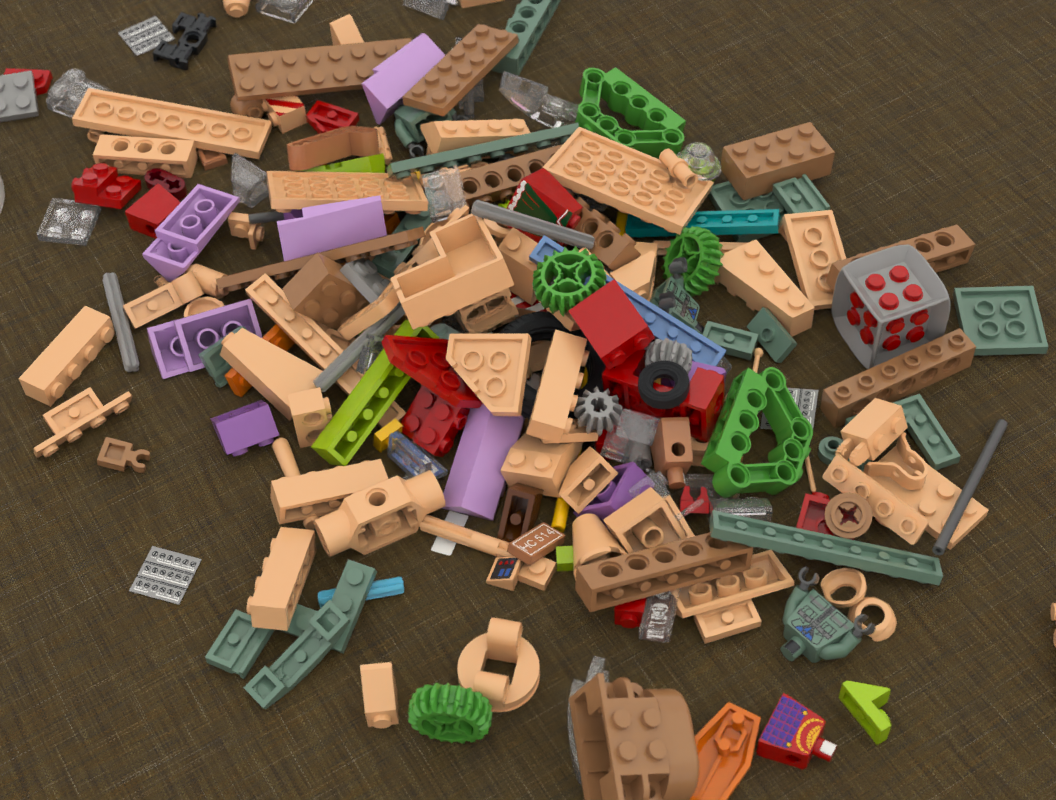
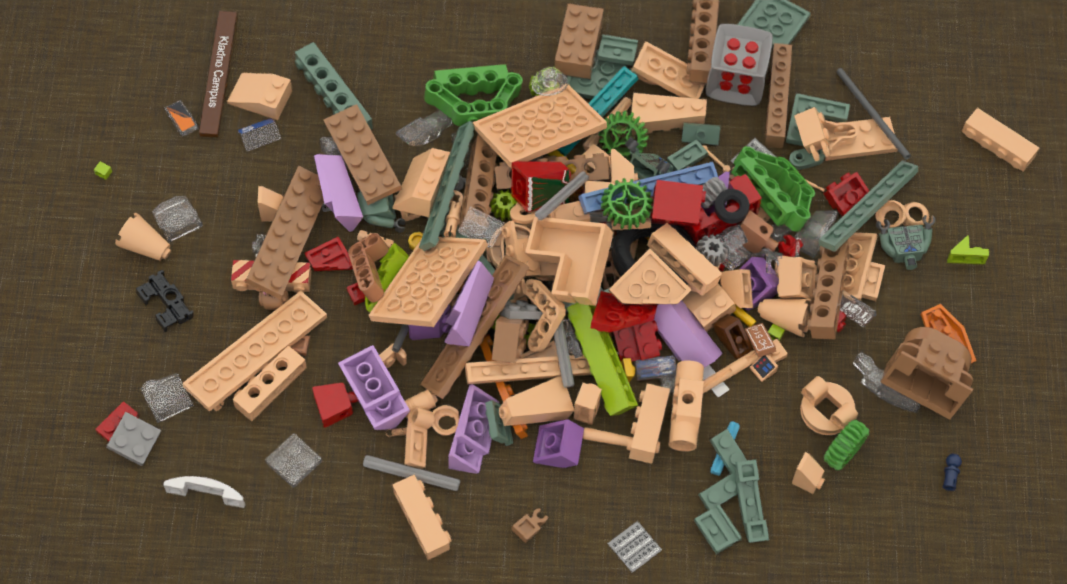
camera: 60 degrees left, 10 degrees up
(75, 416) = (479, 535): light nougat bracket -> none
(104, 187) = (283, 422): red plate -> none
(145, 35) = (133, 323): light grey sticker -> none
(168, 181) = (303, 385): dark red beam -> none
(248, 181) = (345, 334): clear slope -> none
(282, 579) = (697, 480): light nougat brick -> none
(678, 168) = (552, 94): light nougat pin -> none
(794, 735) = (959, 295): torso -> none
(847, 502) = (862, 174): medium nougat gear -> none
(885, 506) = (854, 162): light nougat bracket -> none

